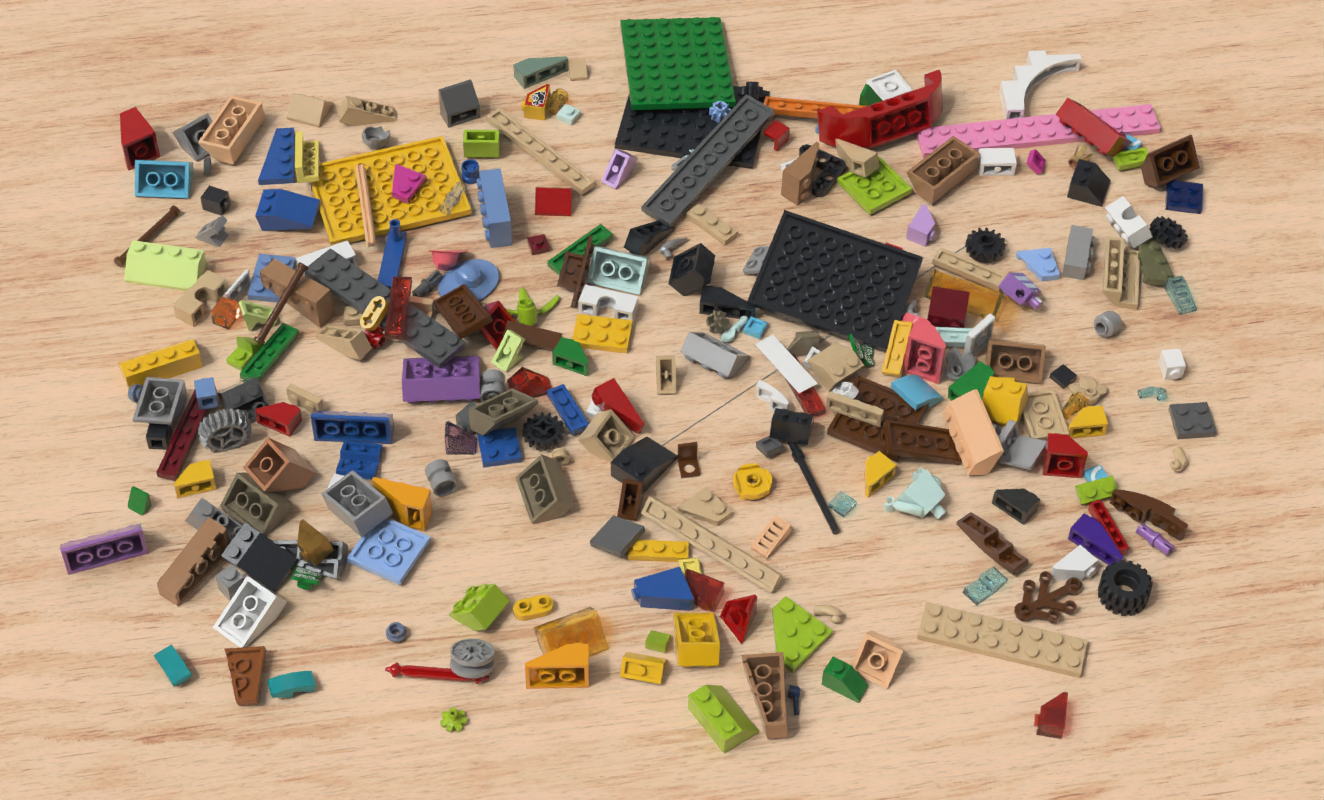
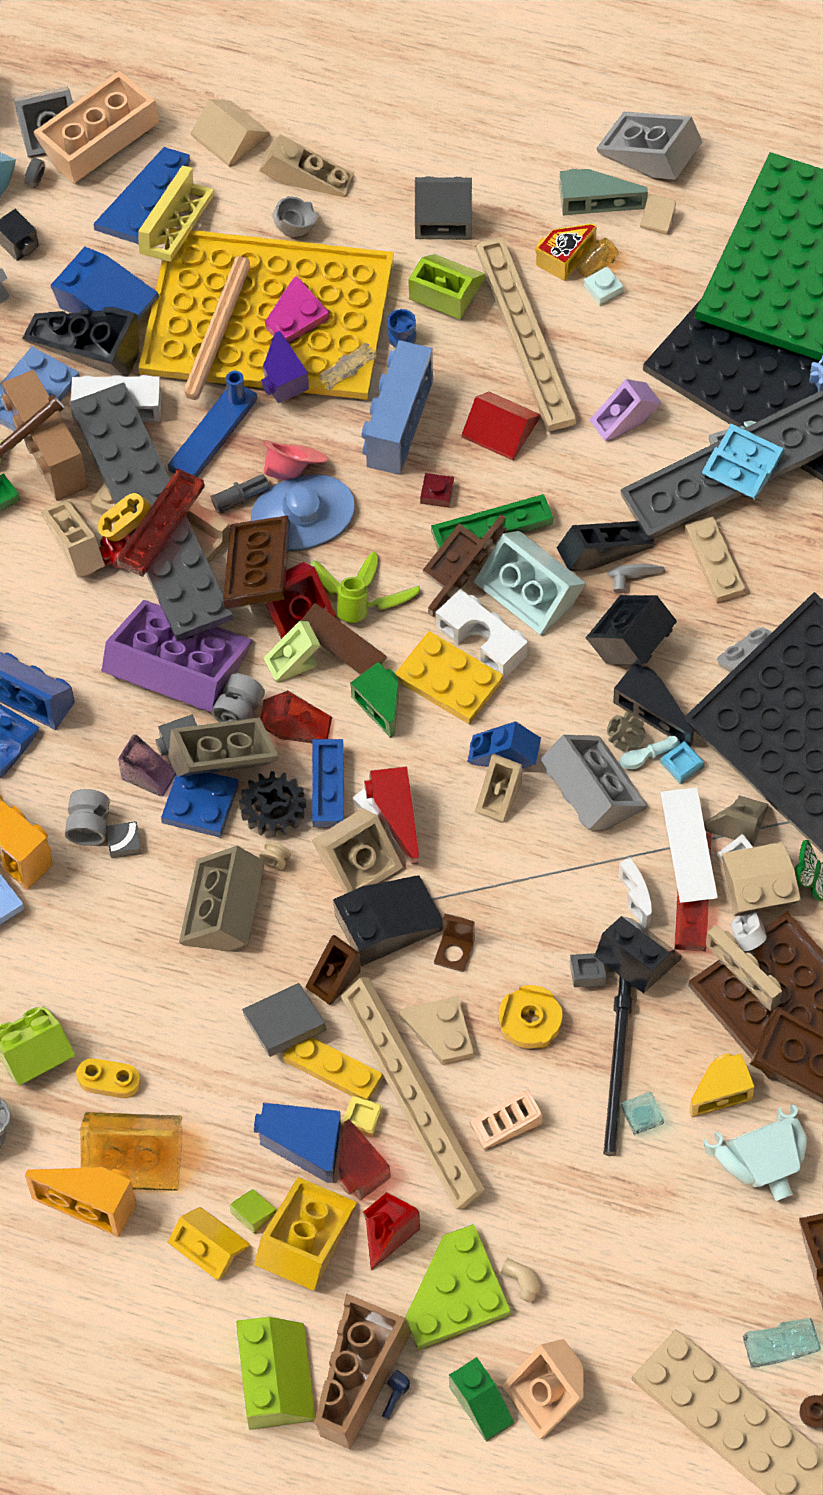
camera: 30 degrees right, 10 degrees up
(297, 236) = (95, 338): none -> black wedge
(419, 212) = (283, 371): none -> dark purple slope
(467, 483) = (123, 839): none -> dark grey tile
(553, 36) = (652, 143): none -> light grey slope
(659, 346) = (508, 741): none -> blue slope
(702, 167) = (743, 461): none -> medium azure slope

